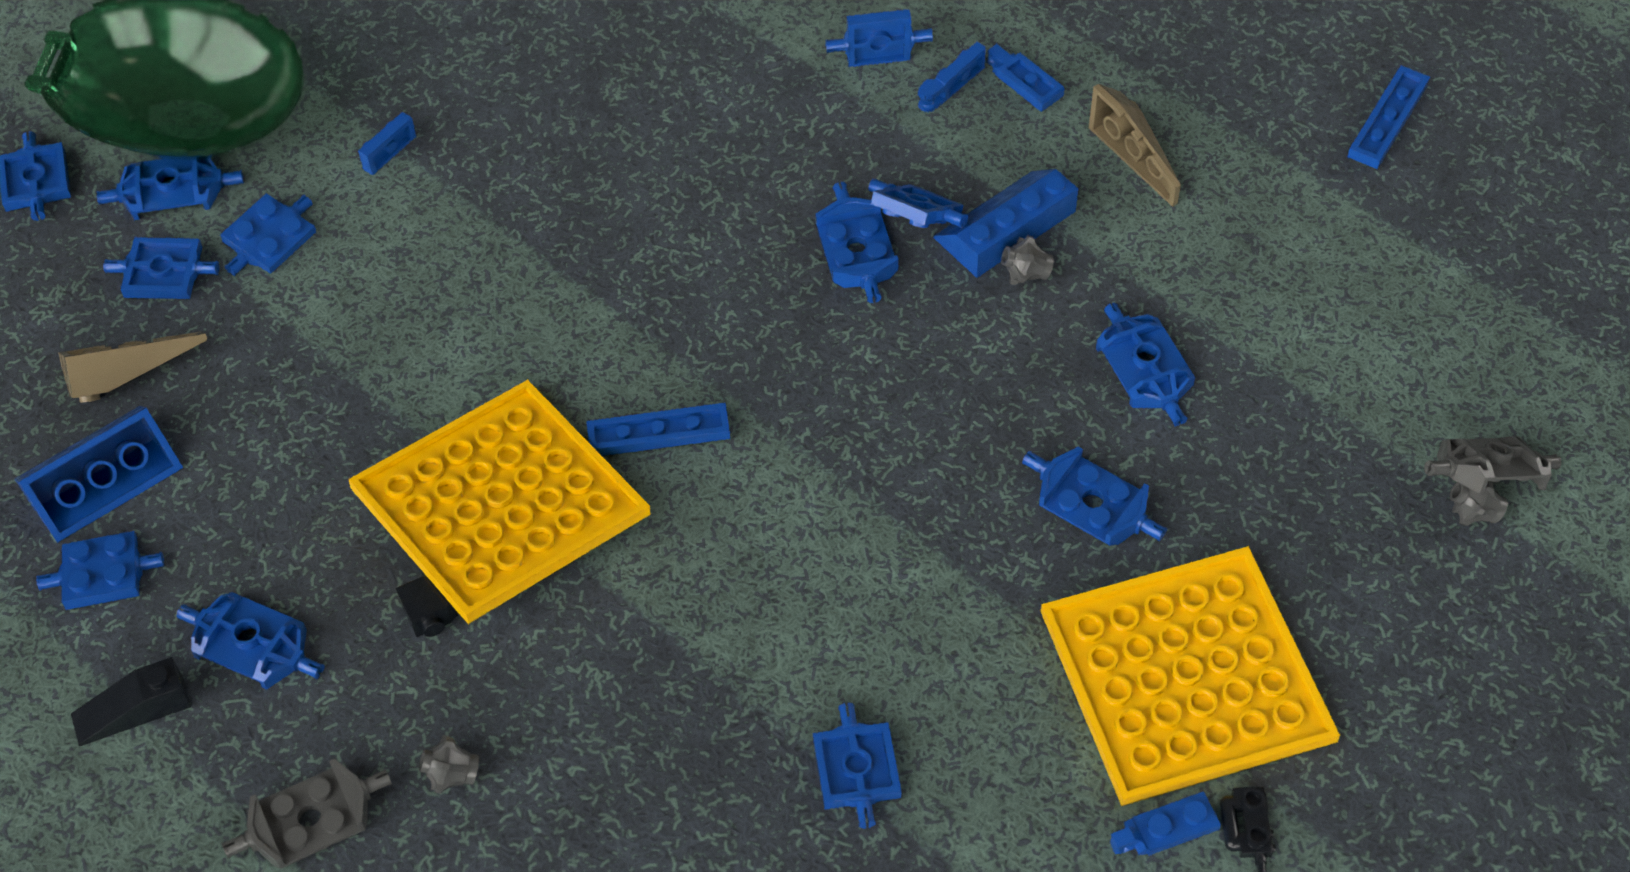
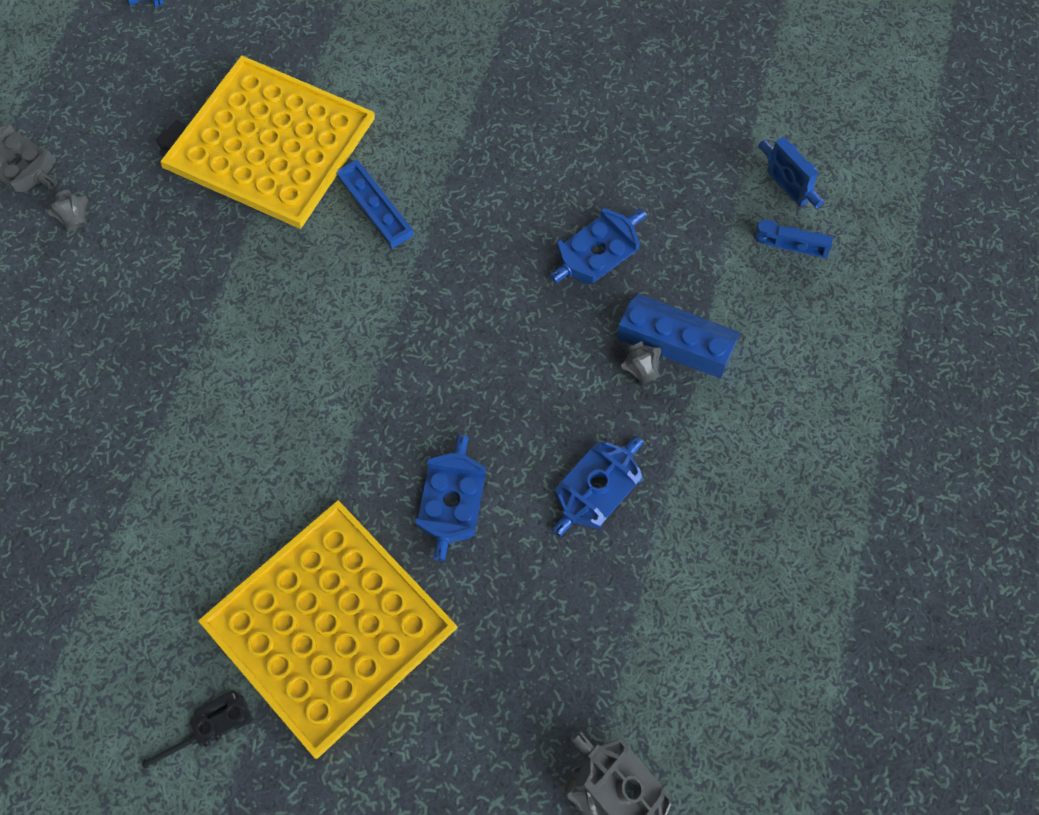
camera: 65 degrees right, 10 degrees up
(132, 701) = (56, 40): black slope -> none
(266, 657) = (120, 84): blue plate -> none
(856, 765) = (162, 438): blue plate -> none
(916, 204) = (649, 266): blue plate -> none
(1025, 77) = (827, 288): blue hinge -> none
(1128, 134) = (817, 380): dark tan wedge -> none
(1167, 826) = (195, 661): blue hinge -> none
(1388, 117) = (968, 575): blue plate -> none

